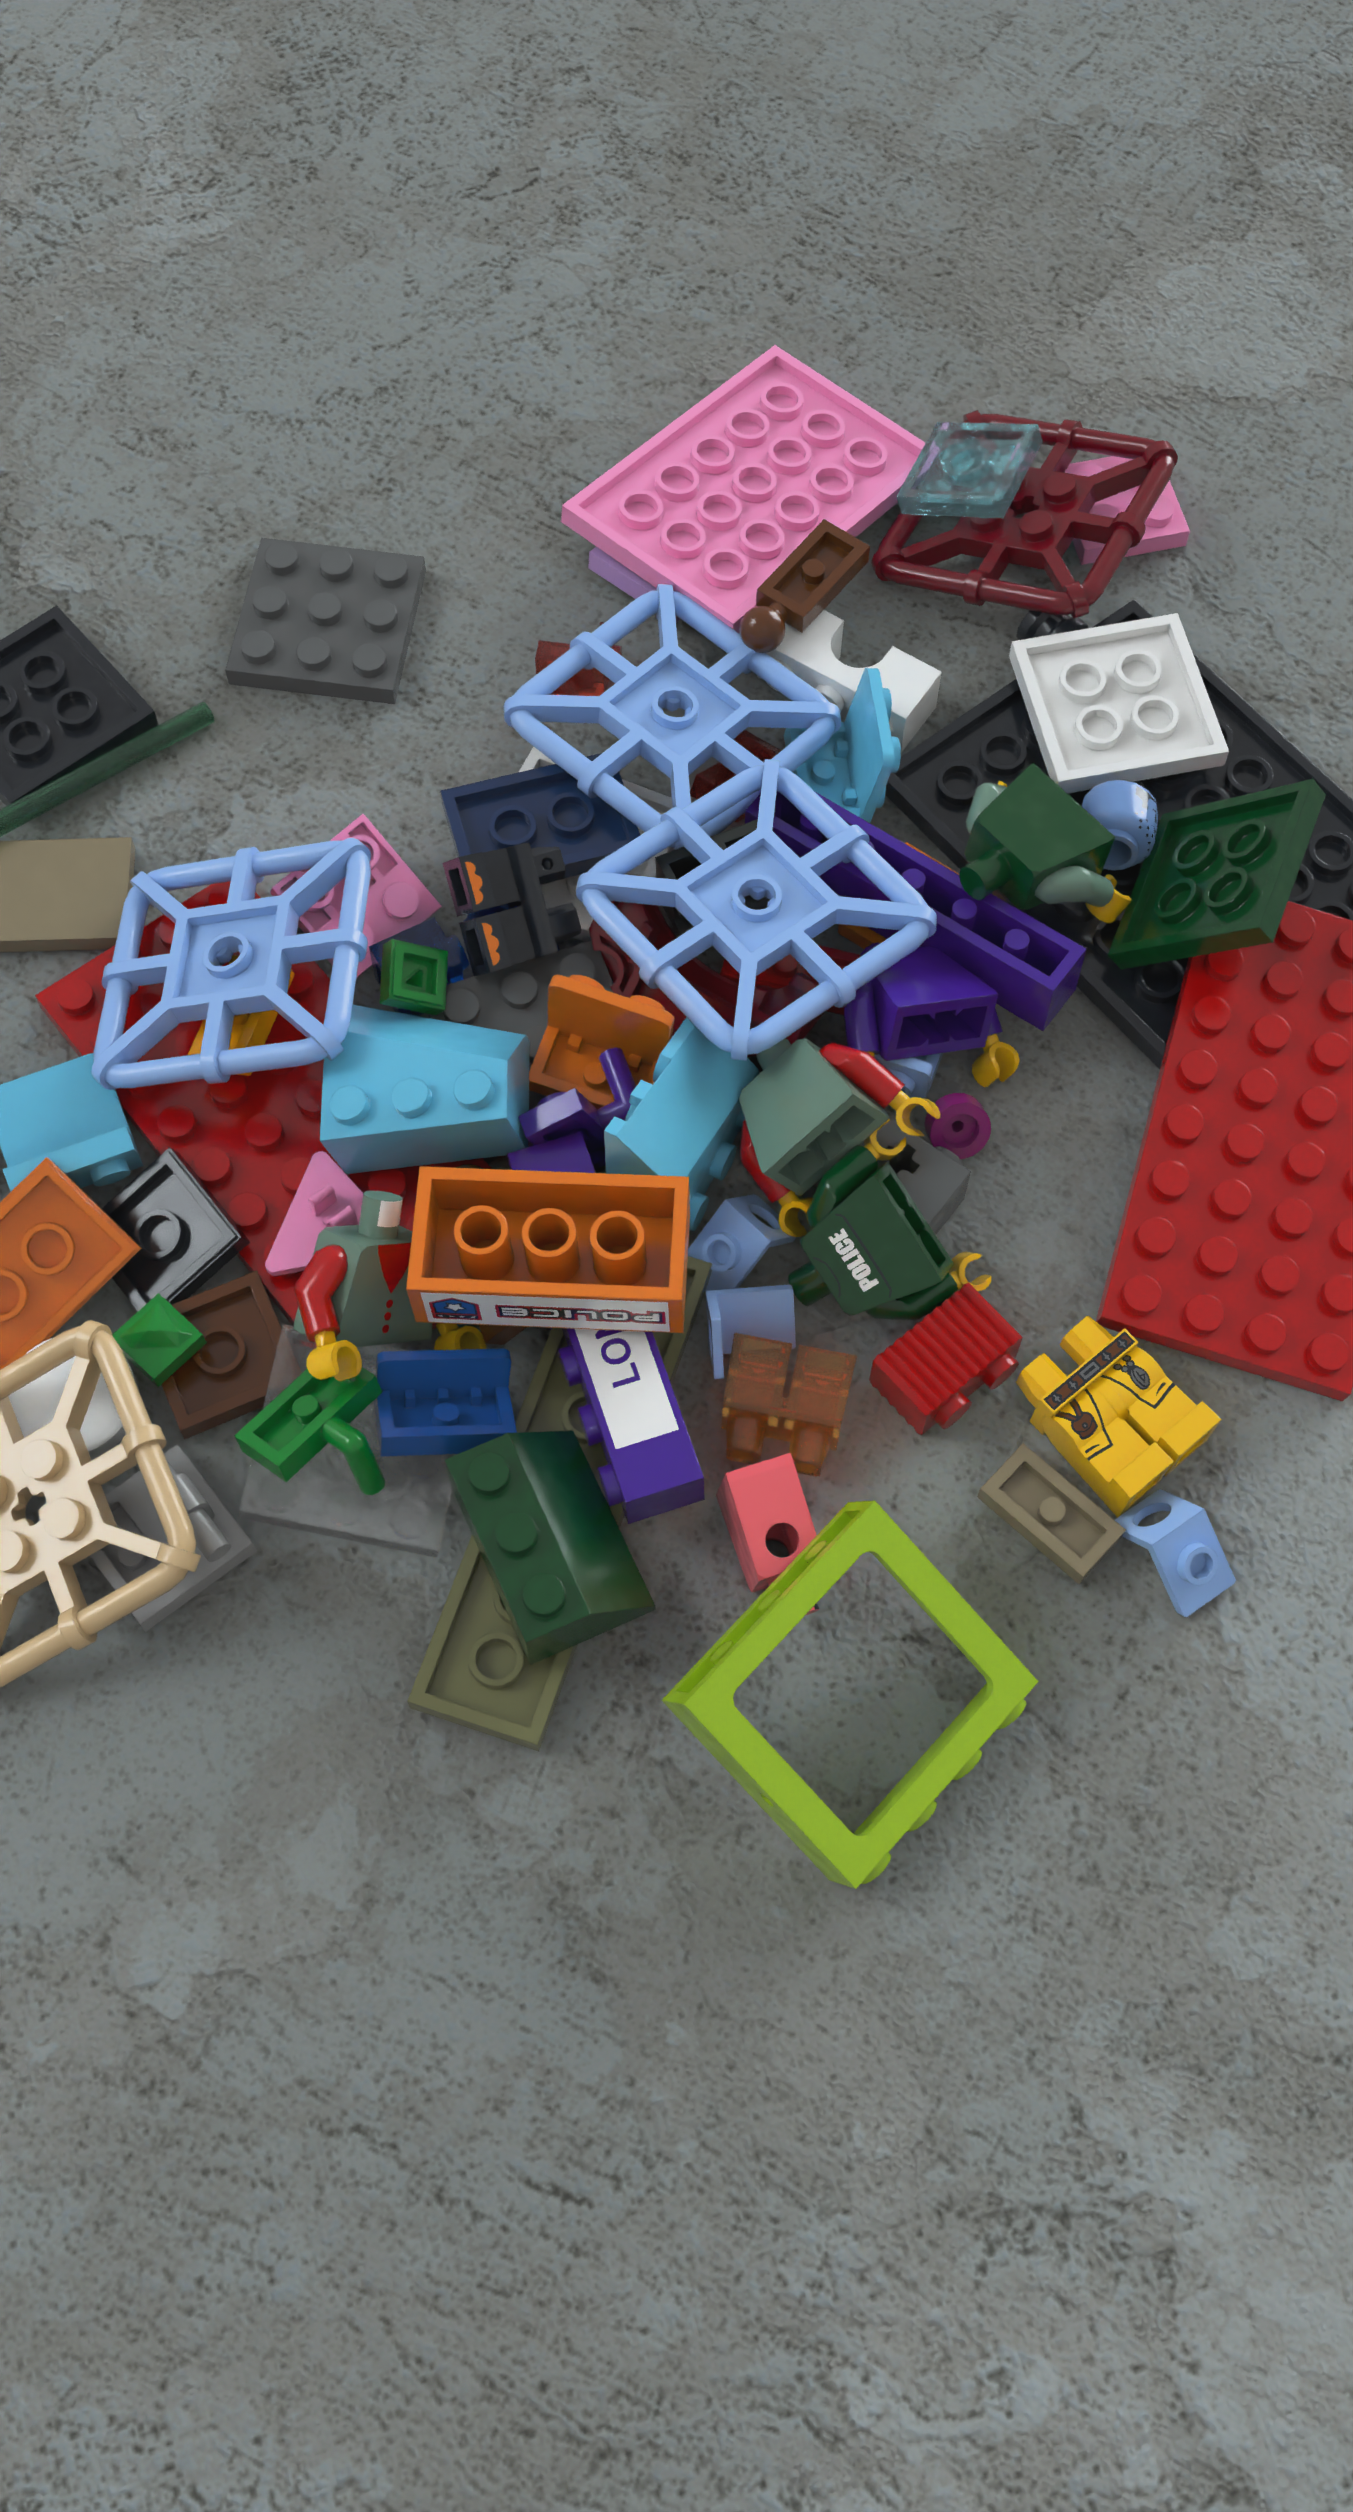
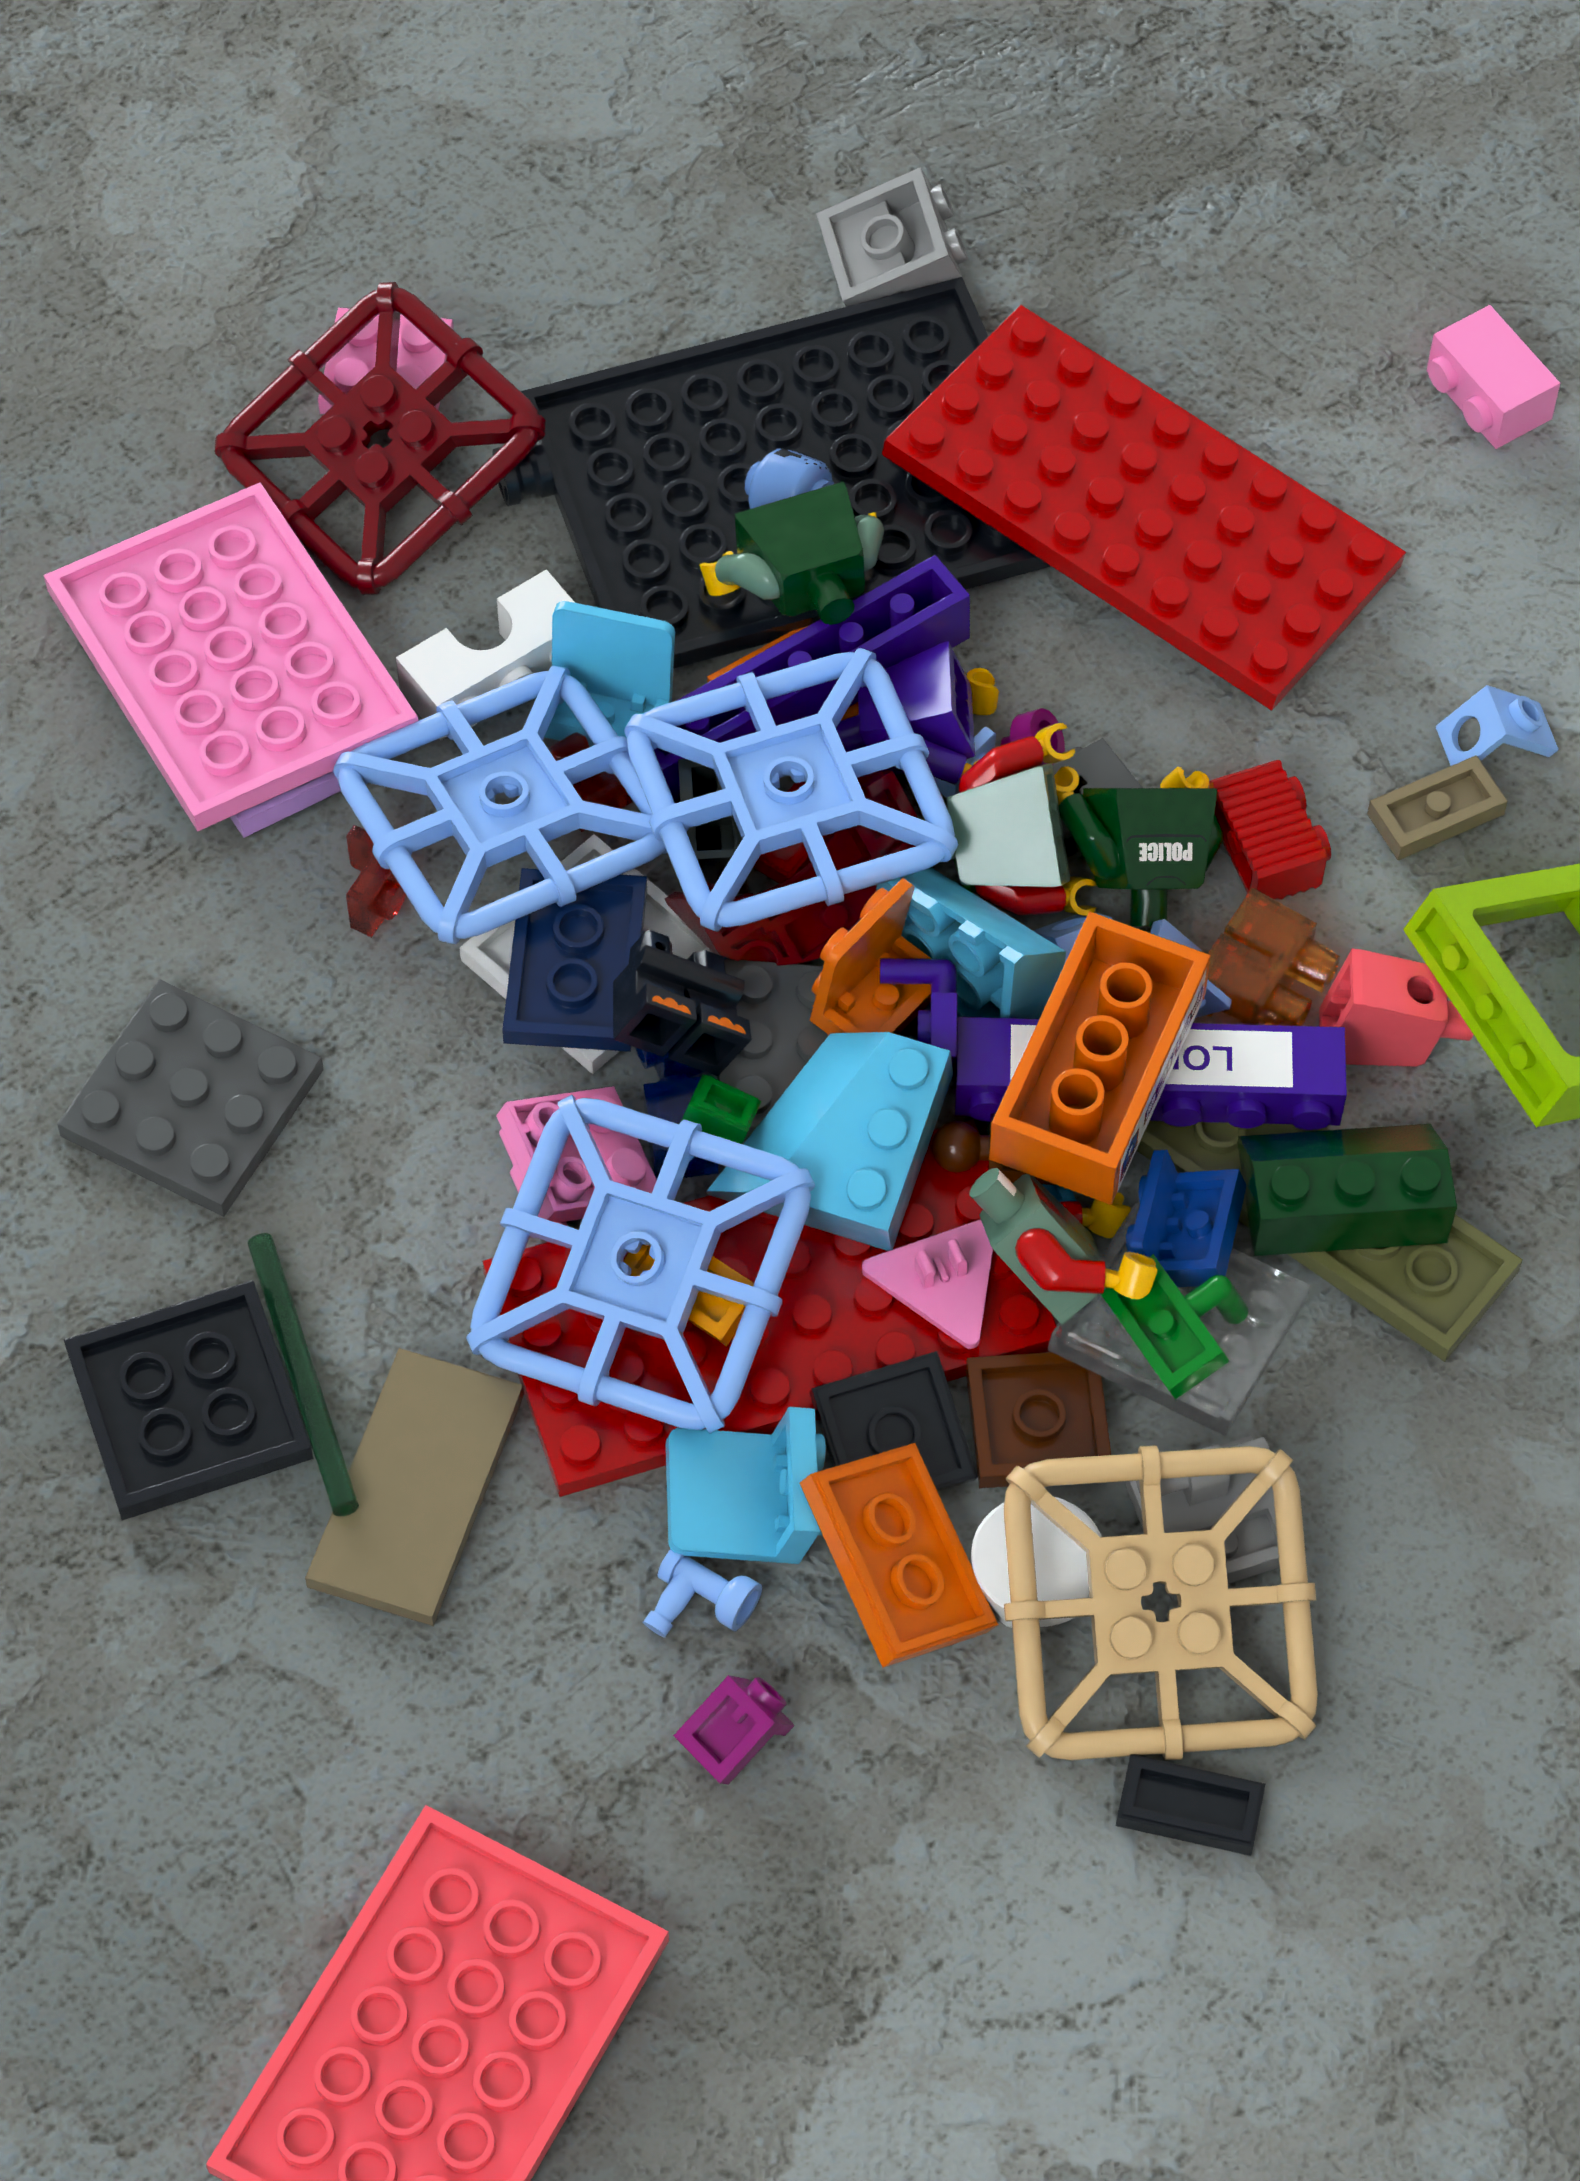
camera: 70 degrees left, 5 degrees down
(158, 1339) = (1012, 1445): green tile -> none
(803, 586) = (404, 640): reddish brown plate -> none
(970, 469) = (320, 457): clear light blue plate -> none
(1114, 1414) = (1366, 725): yellow hips -> none
(1118, 703) = (648, 444): white plate -> none
(1218, 876) = (903, 427): dark green plate -> none

